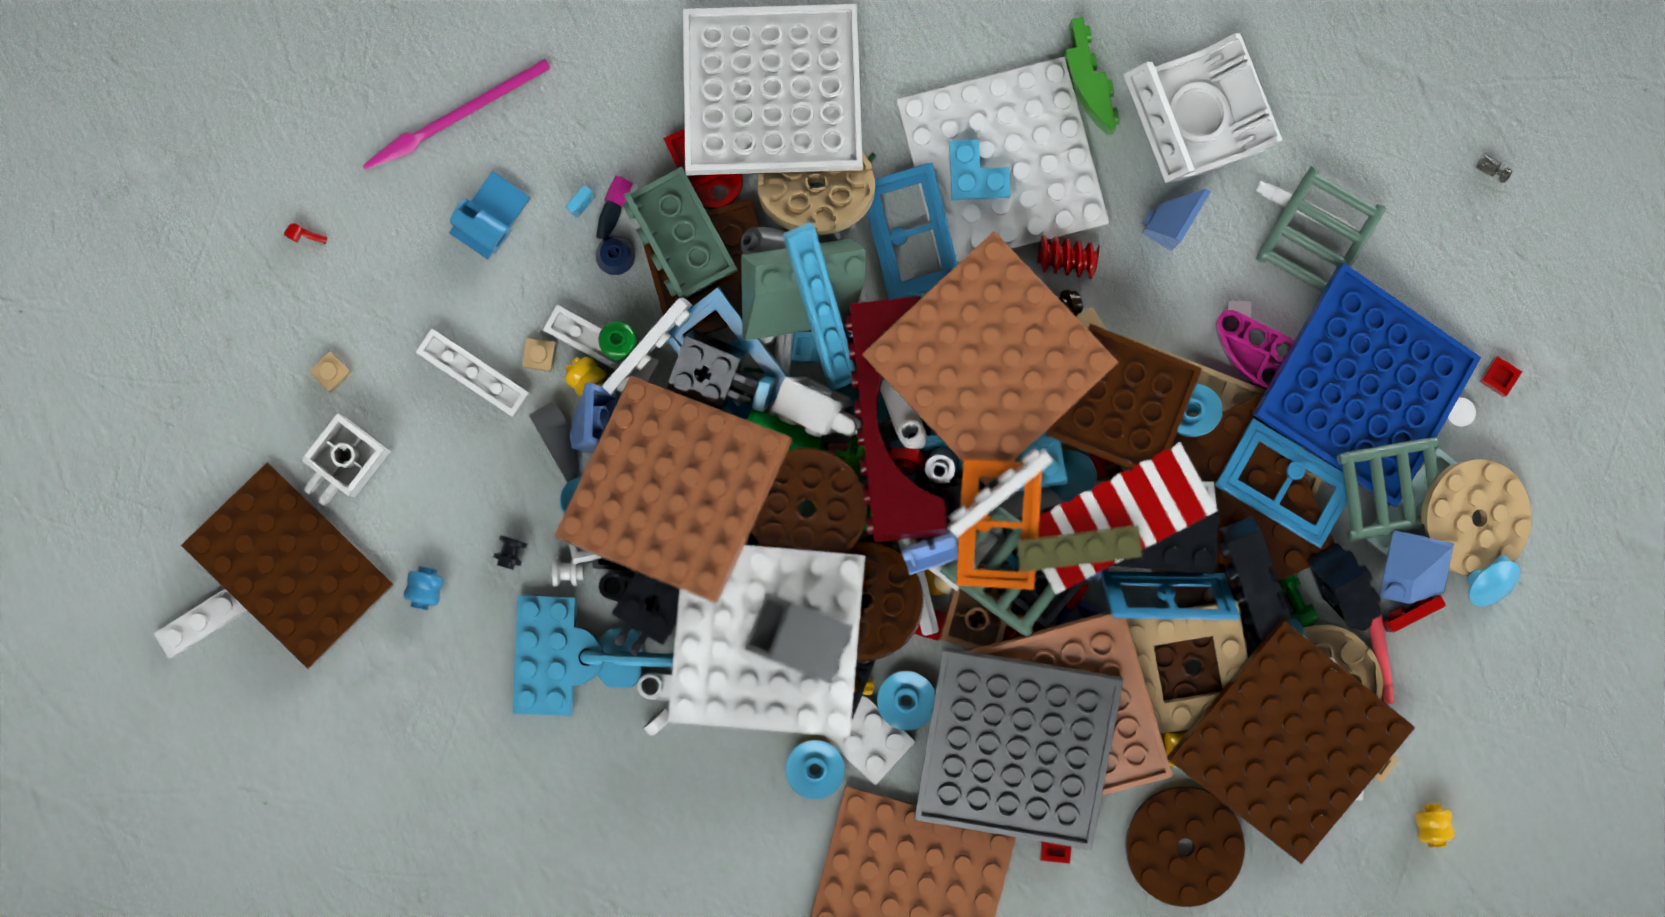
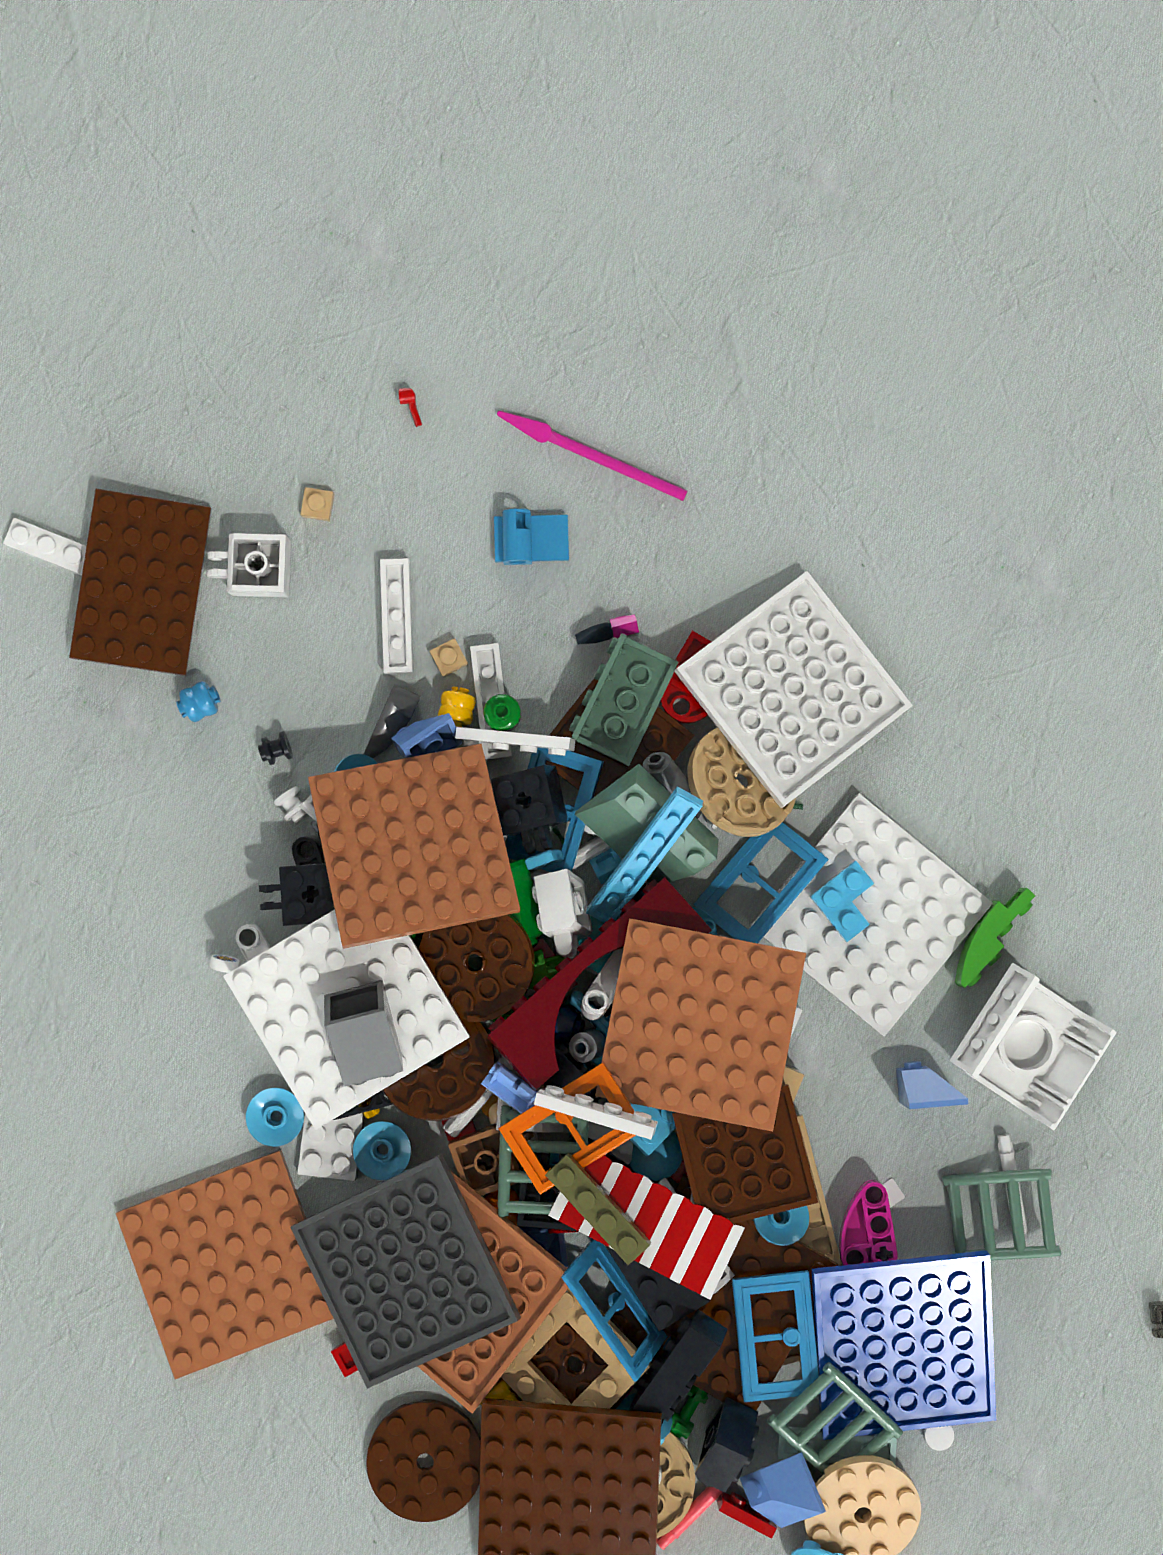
camera: 55 degrees right, 0 degrees up
(553, 659) = (213, 846): medium azure plate -> none
(580, 201) = (593, 602): medium azure tile -> none
(621, 261) = (568, 668): dark blue cone -> none
(908, 459) = (572, 1014): red plate -> none
(1067, 257) = (832, 1023): red piece -> none
(1072, 301) = (797, 1052): dark brown plate -> none
(1500, 376) = (992, 1447): red plate -> none

